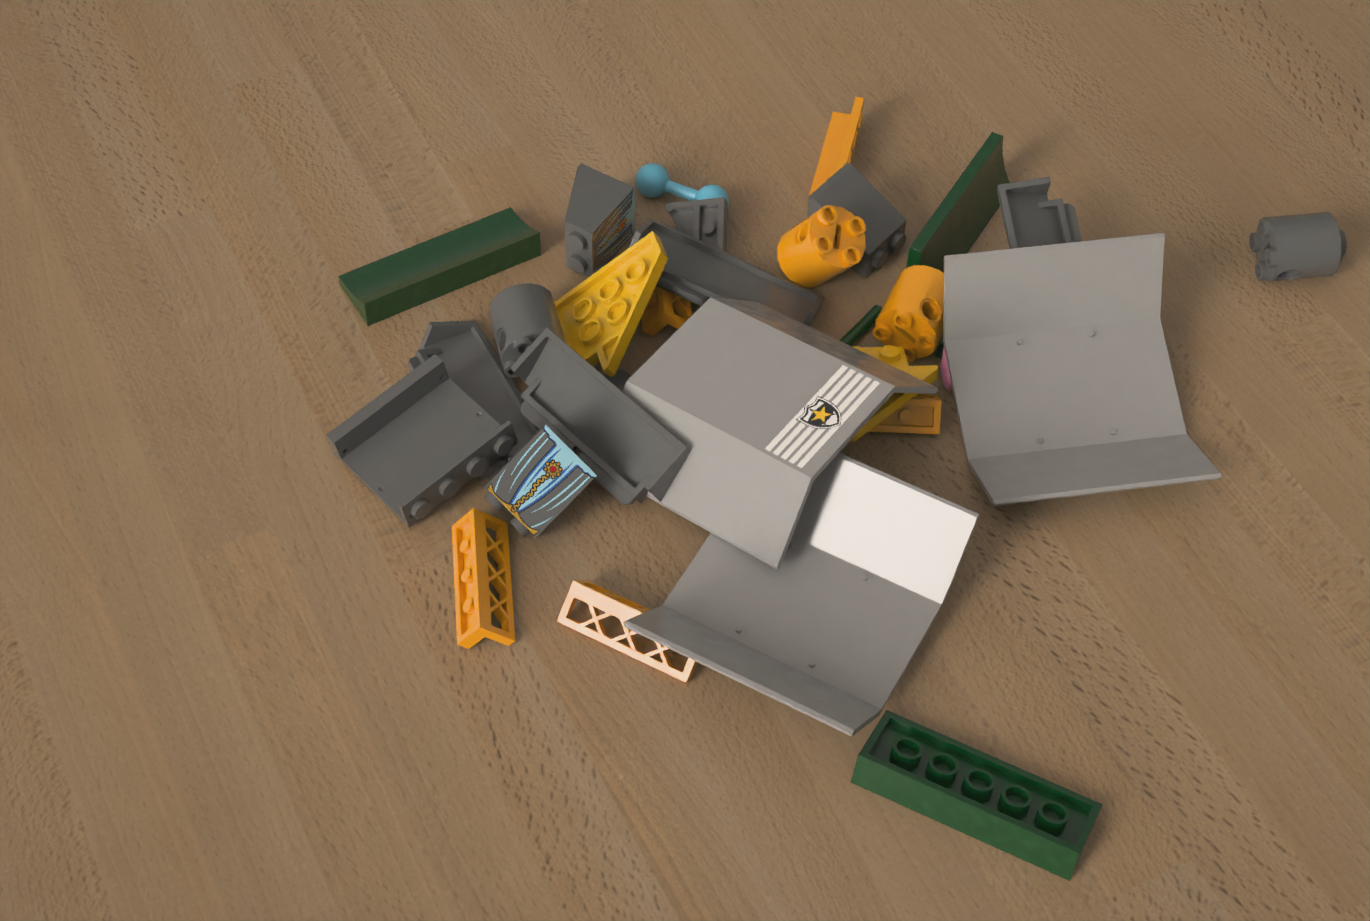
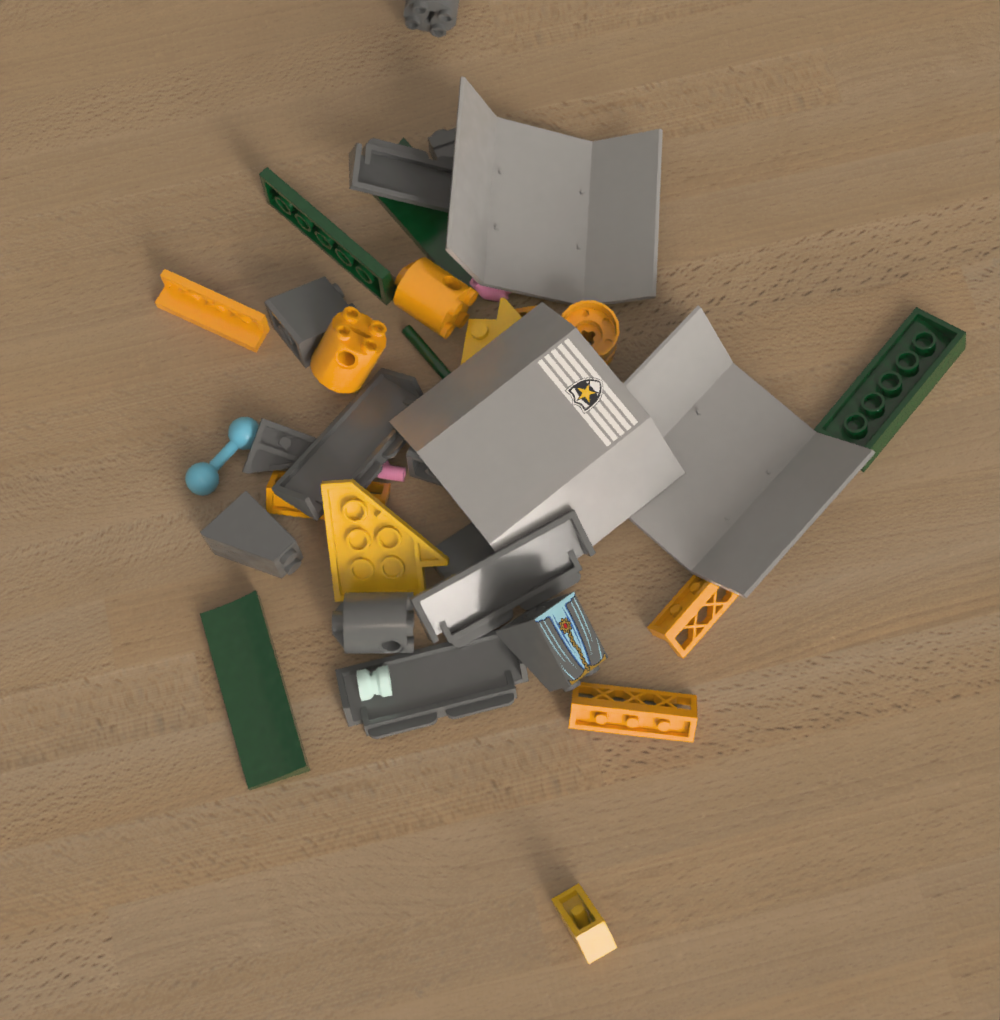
camera: 75 degrees left, 20 degrees up
(230, 568) = (584, 923): none -> yellow slope
(420, 441) = (482, 736): dark grey panel -> none
(464, 346) = (374, 683): none -> light aqua wheel
(921, 449) = (597, 325): none -> light orange wheel

